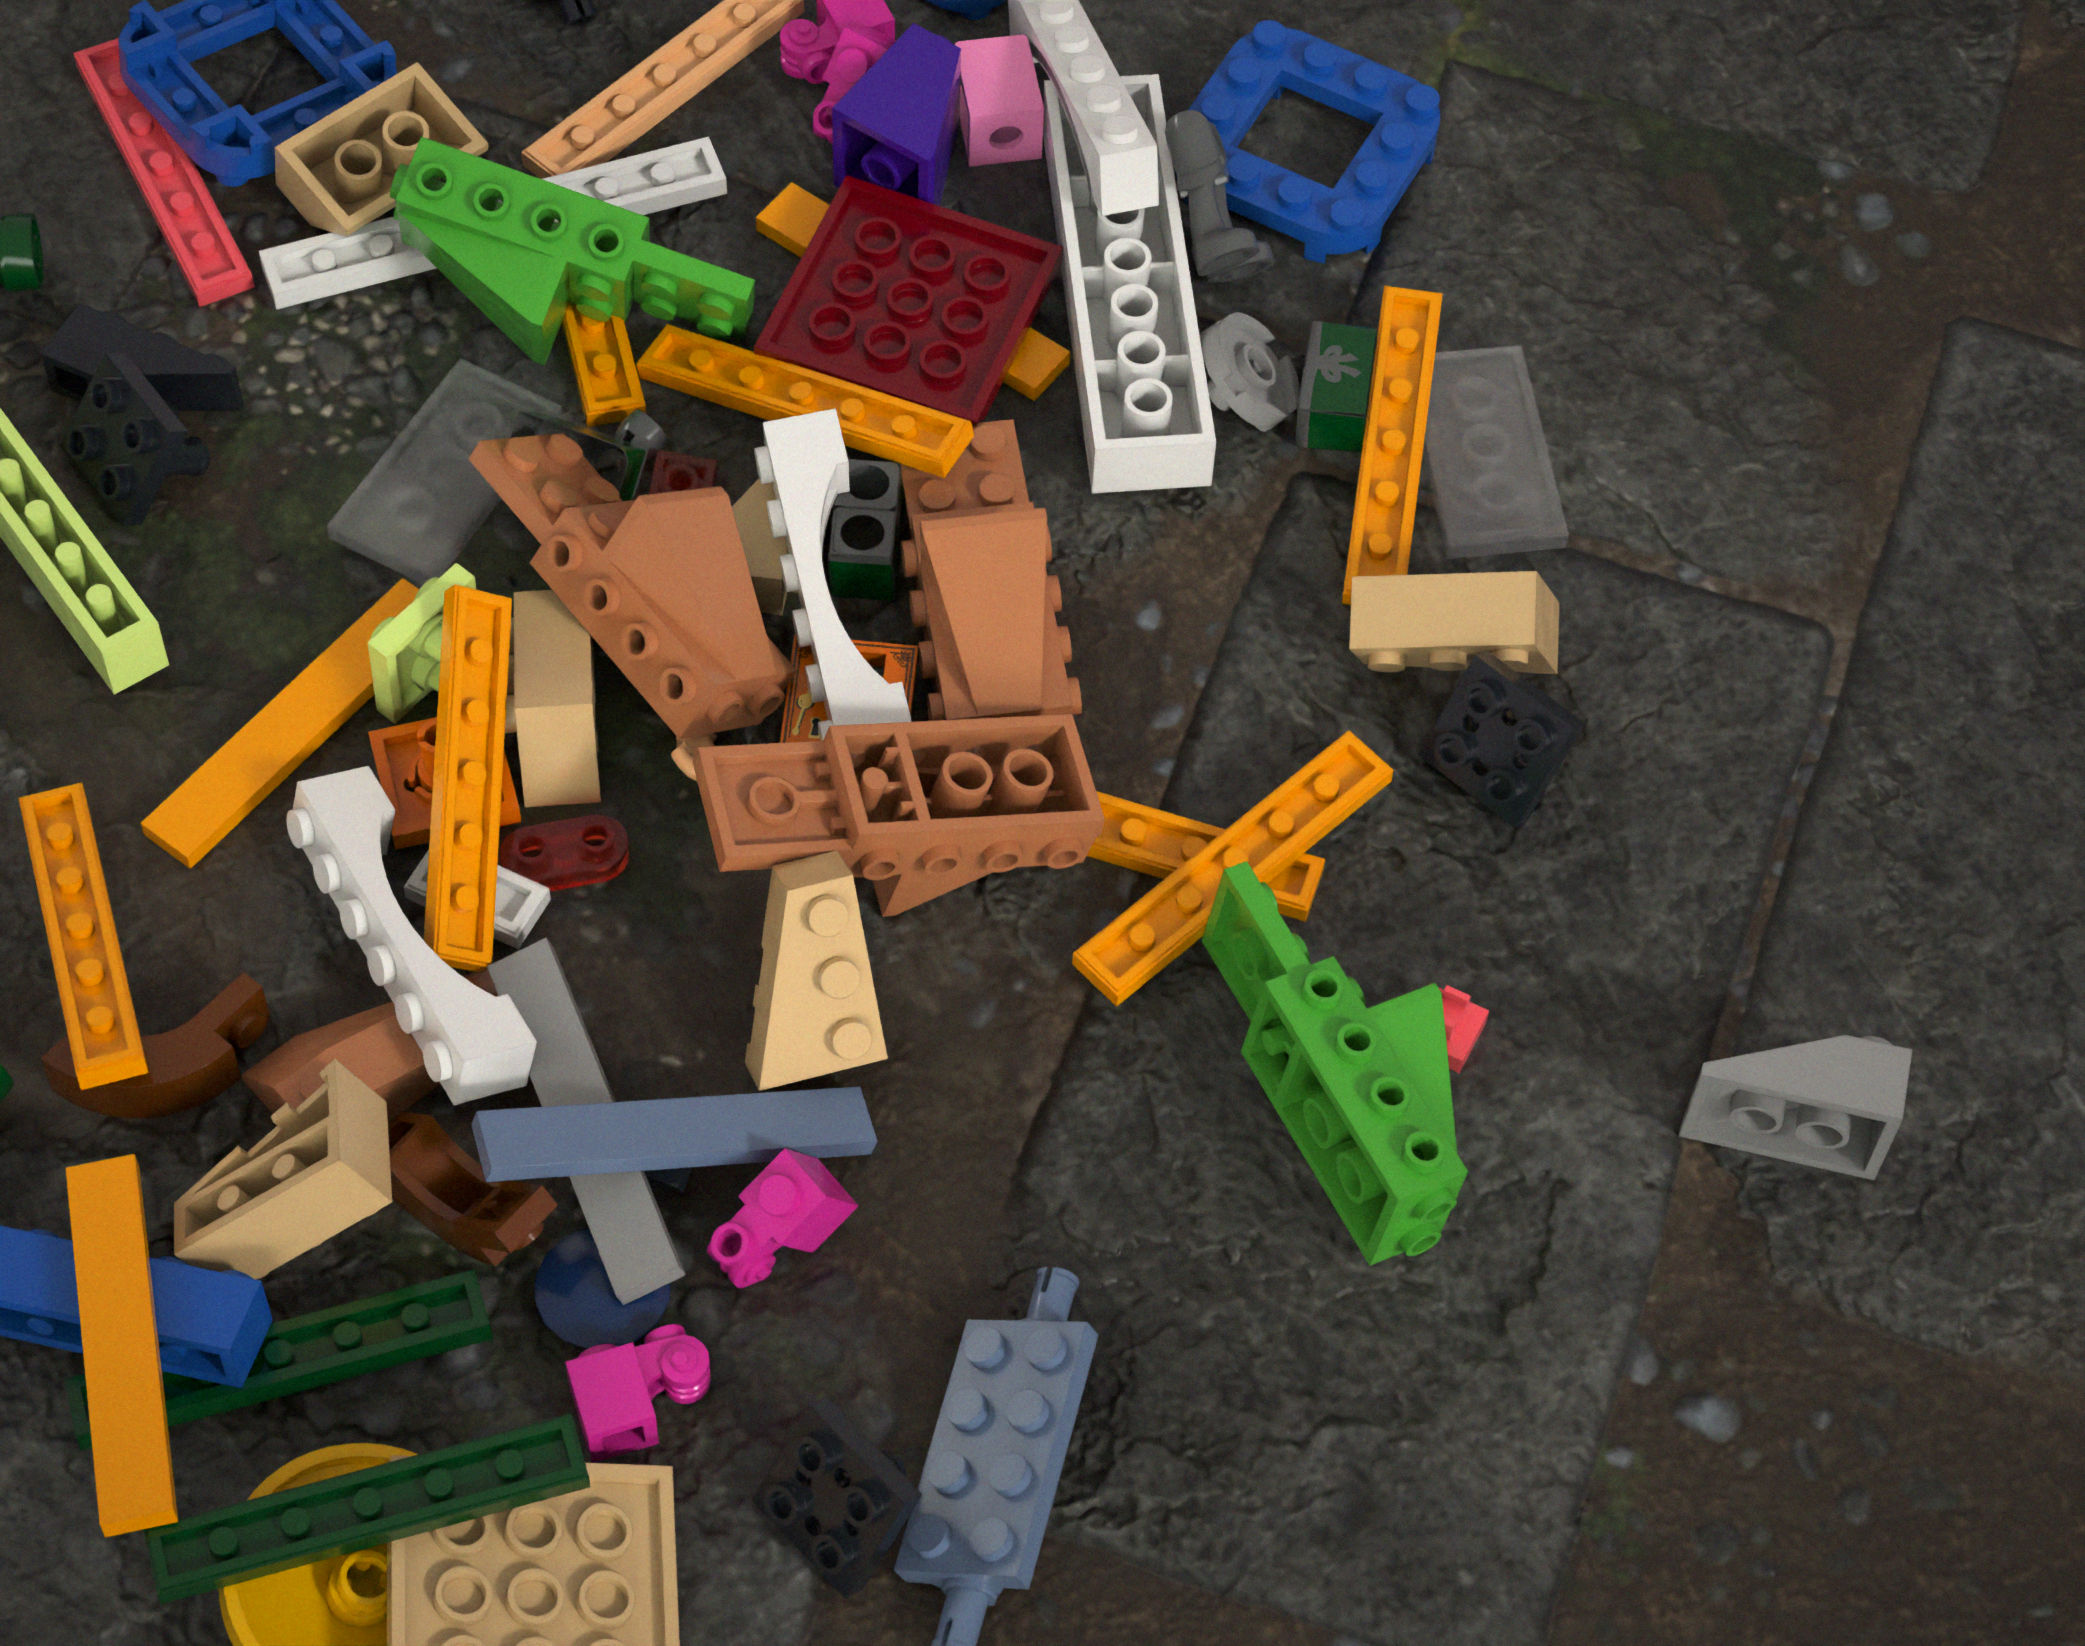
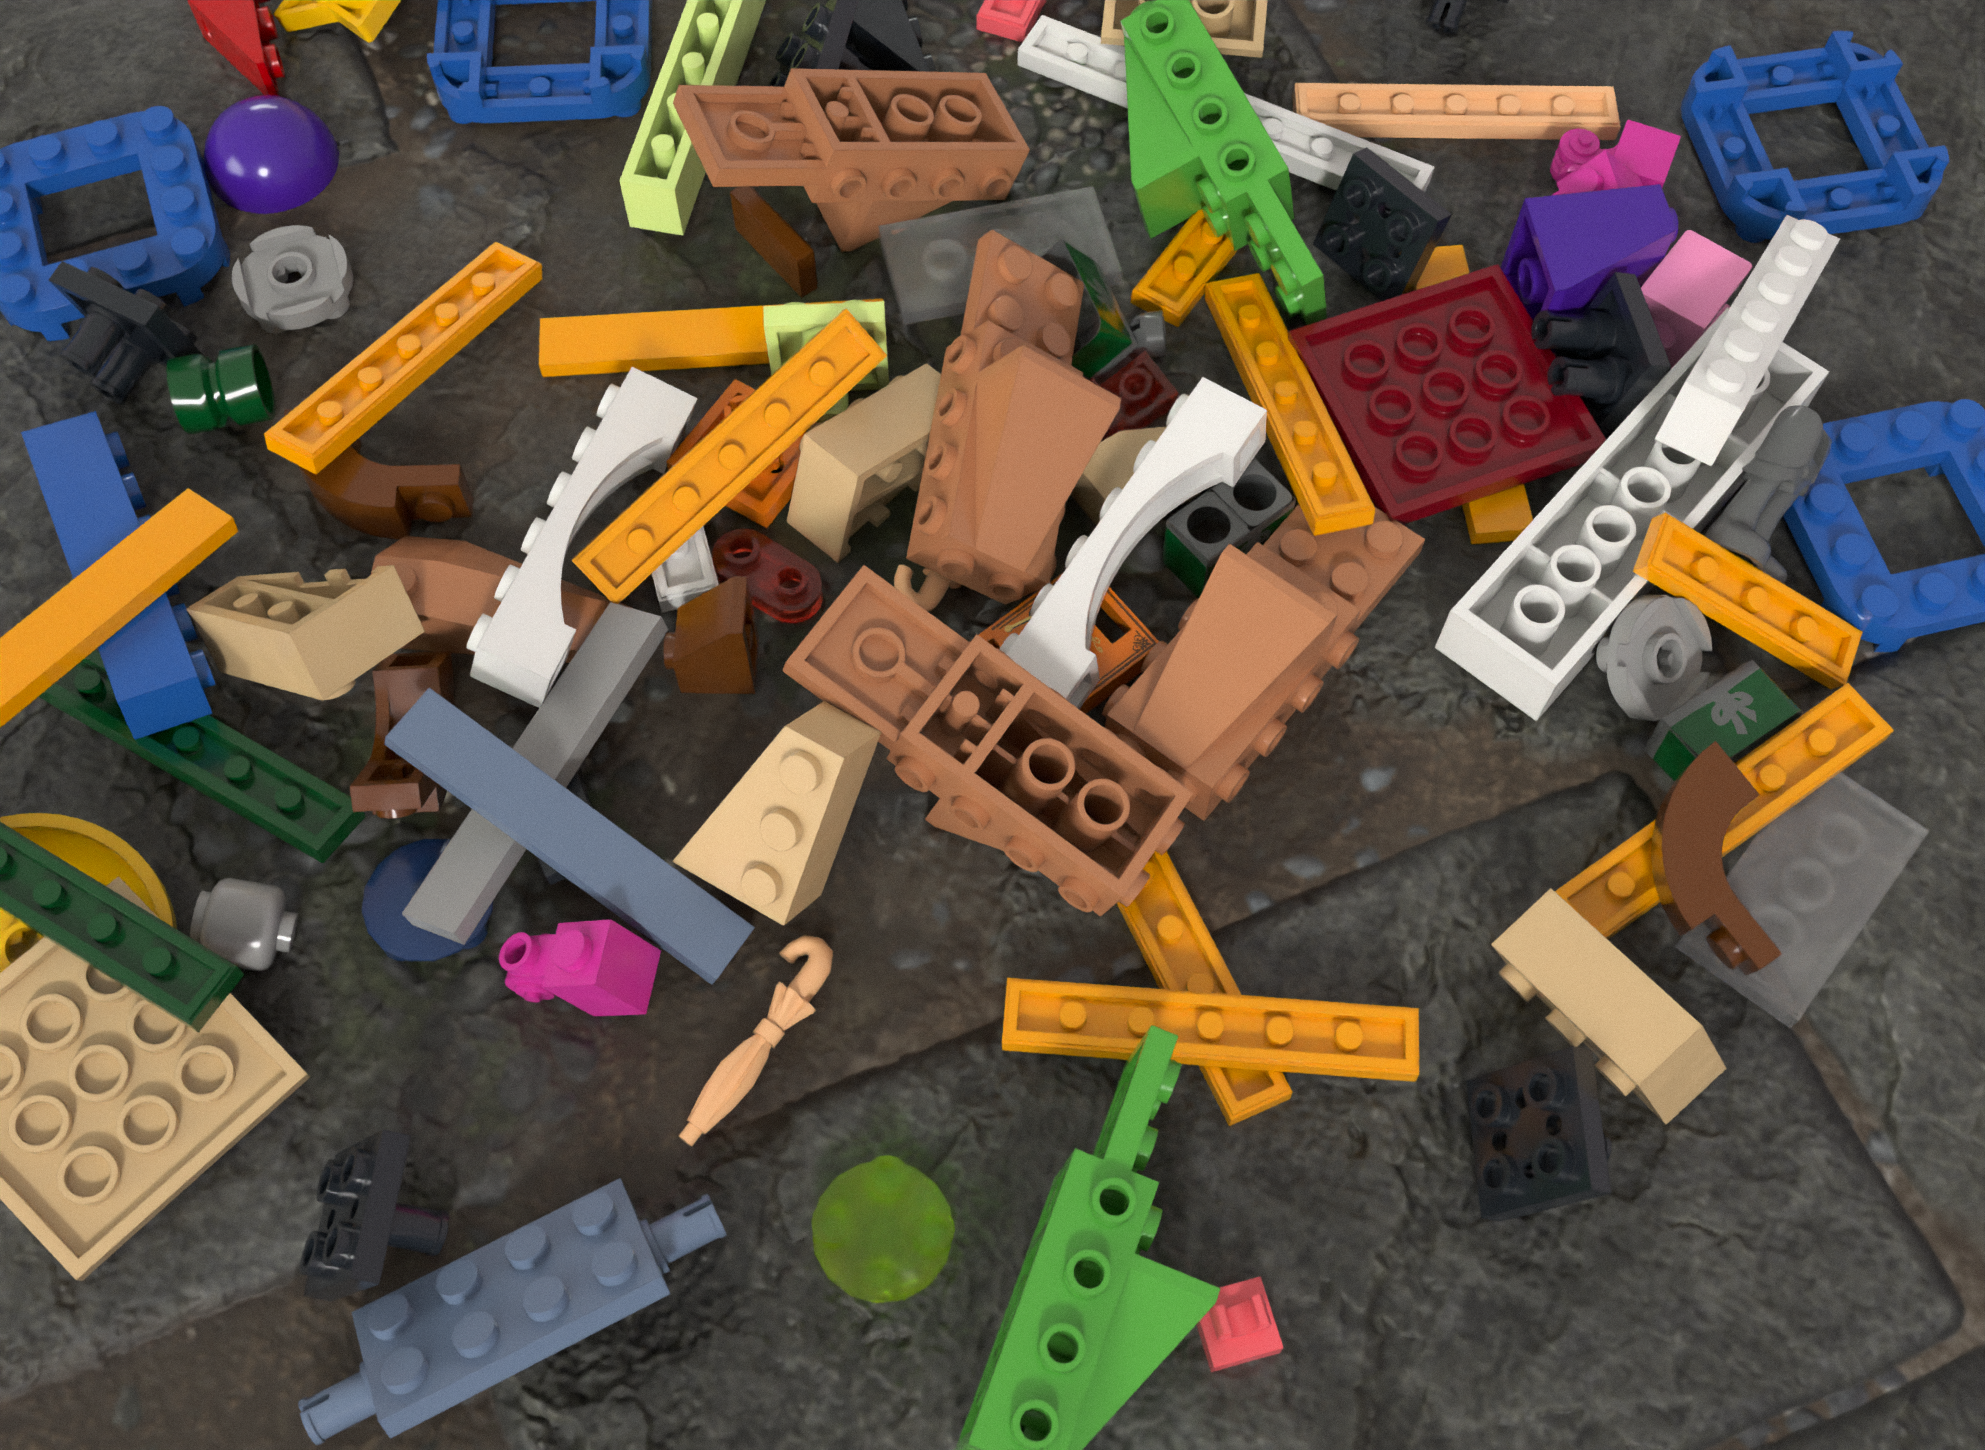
camera: 50 degrees right, 5 degrees up
(259, 603) = (774, 239): none -> reddish brown tile
(268, 461) = (859, 142): none -> nougat wedge
(492, 1407) = (244, 923): none -> light grey head
(603, 919) = (715, 641): none -> reddish brown slope
(617, 1386) = (338, 981): dark pink brick -> none
(734, 197) = (1391, 216): none -> black plate
(960, 1177) = (744, 1064): none -> light nougat piece
(996, 178) = (1606, 353): none -> black plate
(1173, 1183) = (882, 1230): none -> clear neon green dish
(1267, 282) = (1748, 601): none -> light orange tile
(1409, 481) = (1690, 866): none -> reddish brown arch

